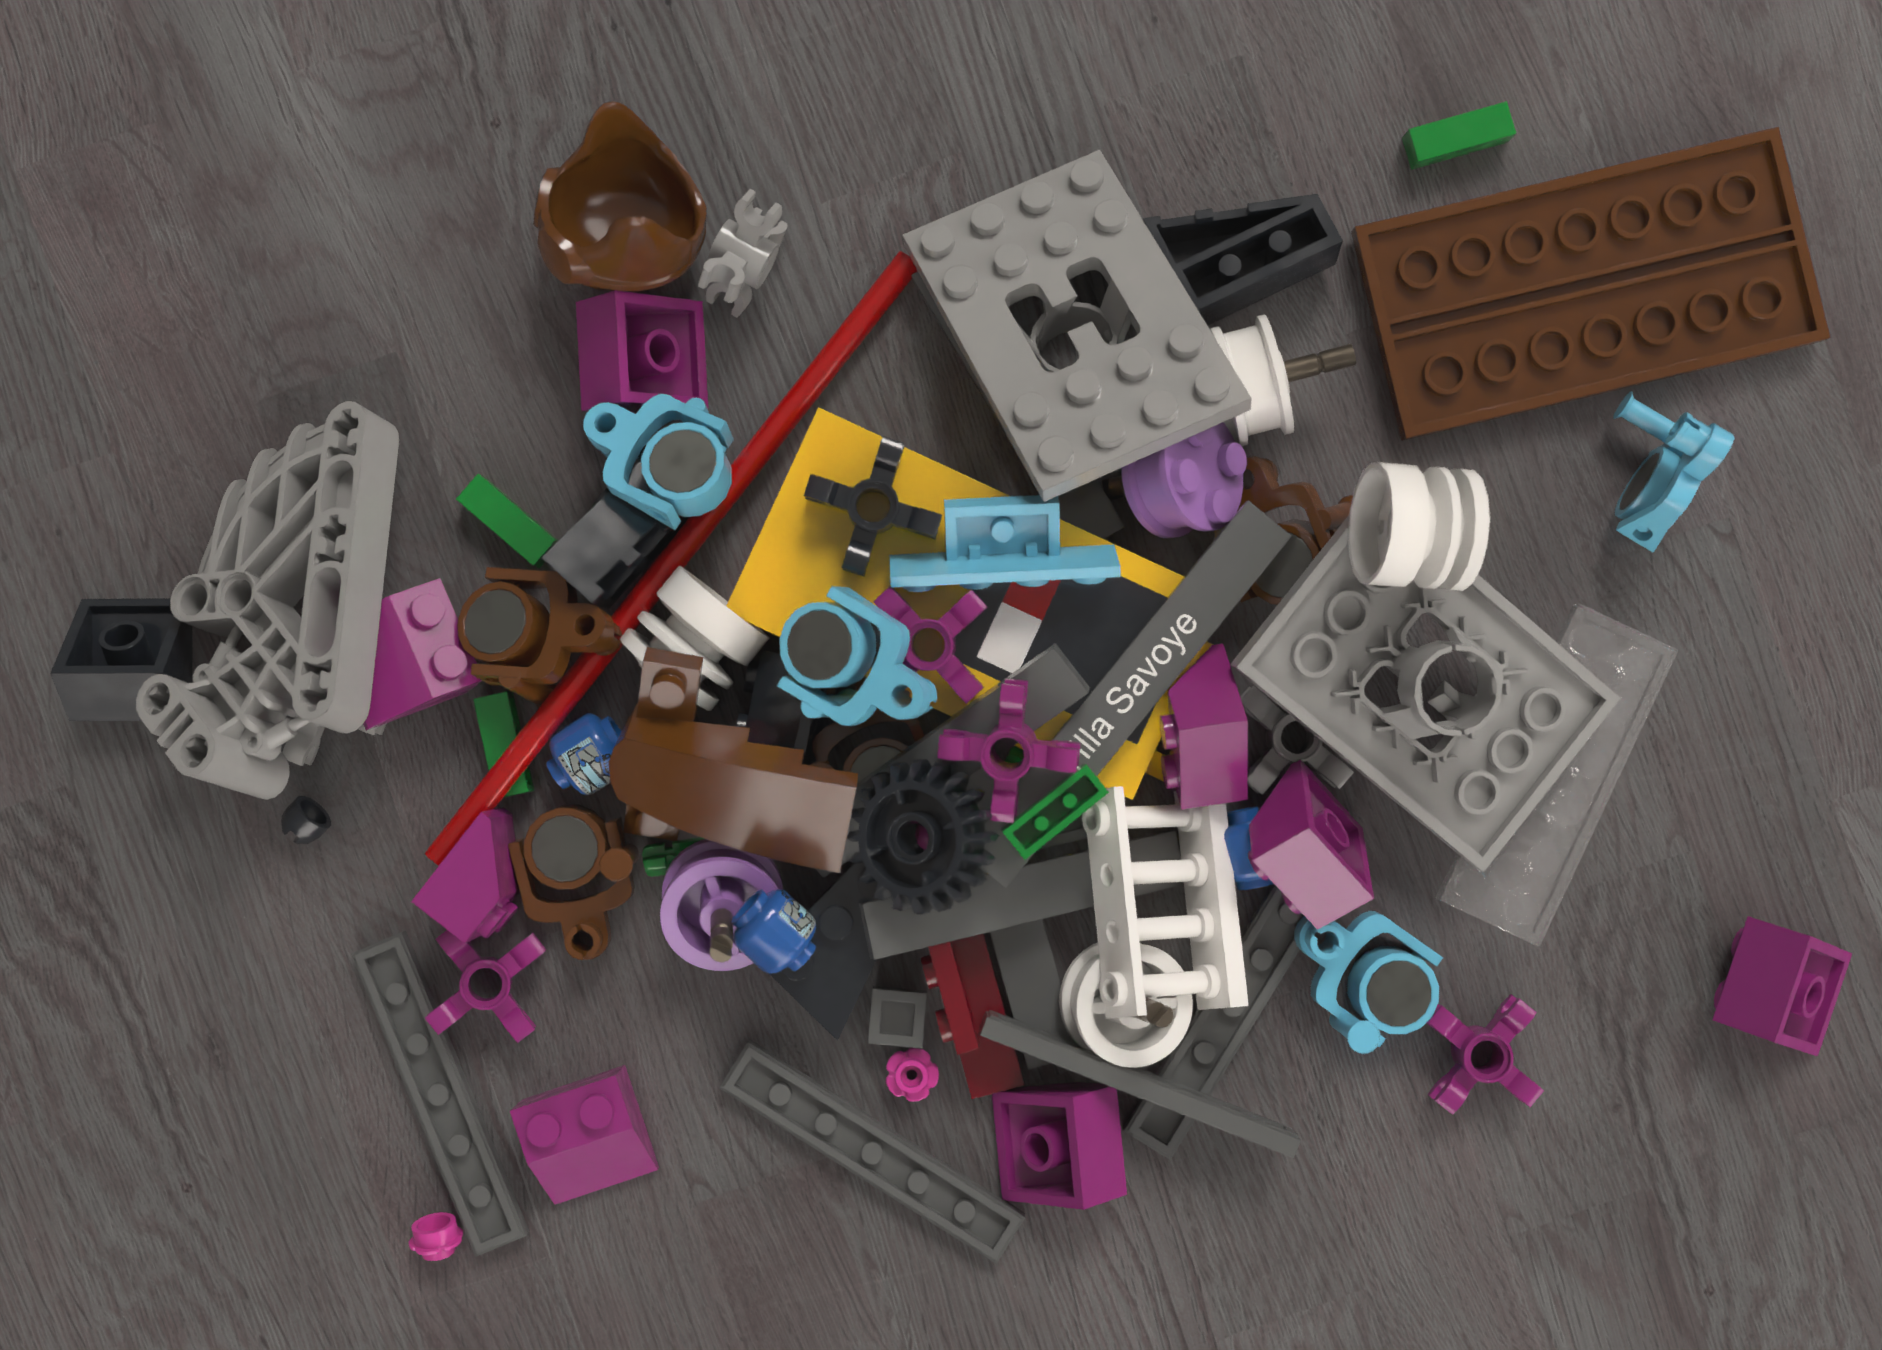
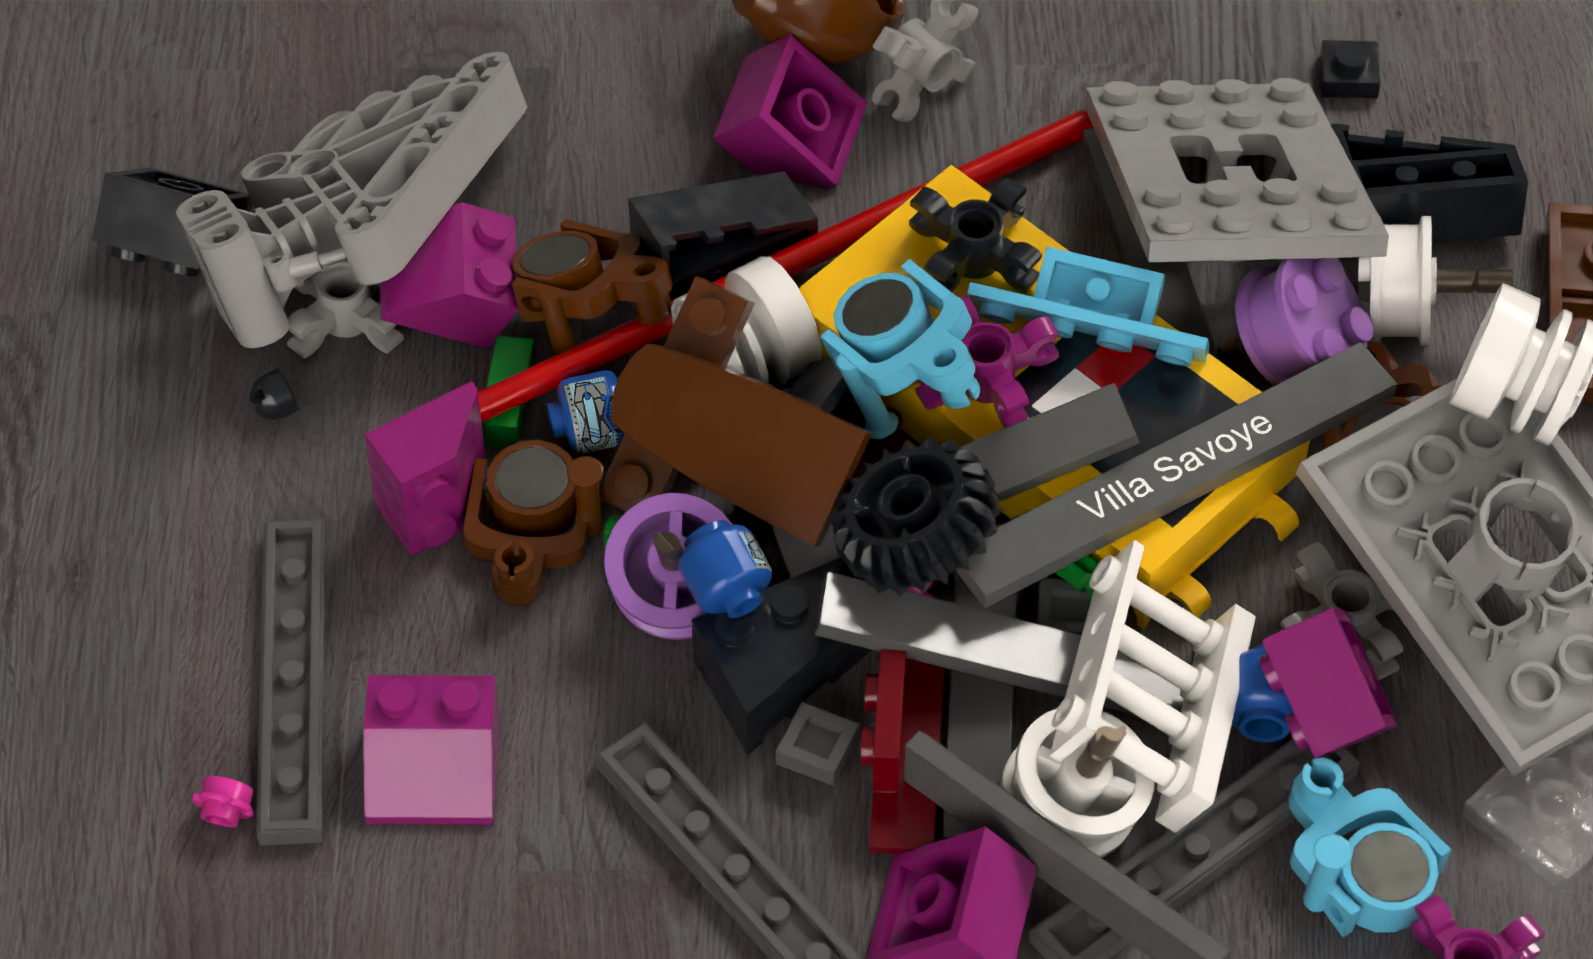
camera: 20 degrees right, 35 degrees down
(503, 1004) = (389, 598): magenta pin -> none
(507, 520) = (591, 200): green piece -> none
(680, 462) = (797, 169): medium azure piece -> none
(917, 1060) = (811, 821): dark pink plate -> none
(965, 745) = (1043, 476): magenta pin -> none
(1054, 811) = (1063, 531): green piece -> none
(1130, 110) = (1350, 69): none -> black plate
(1206, 735) = (1247, 540): magenta slope -> none

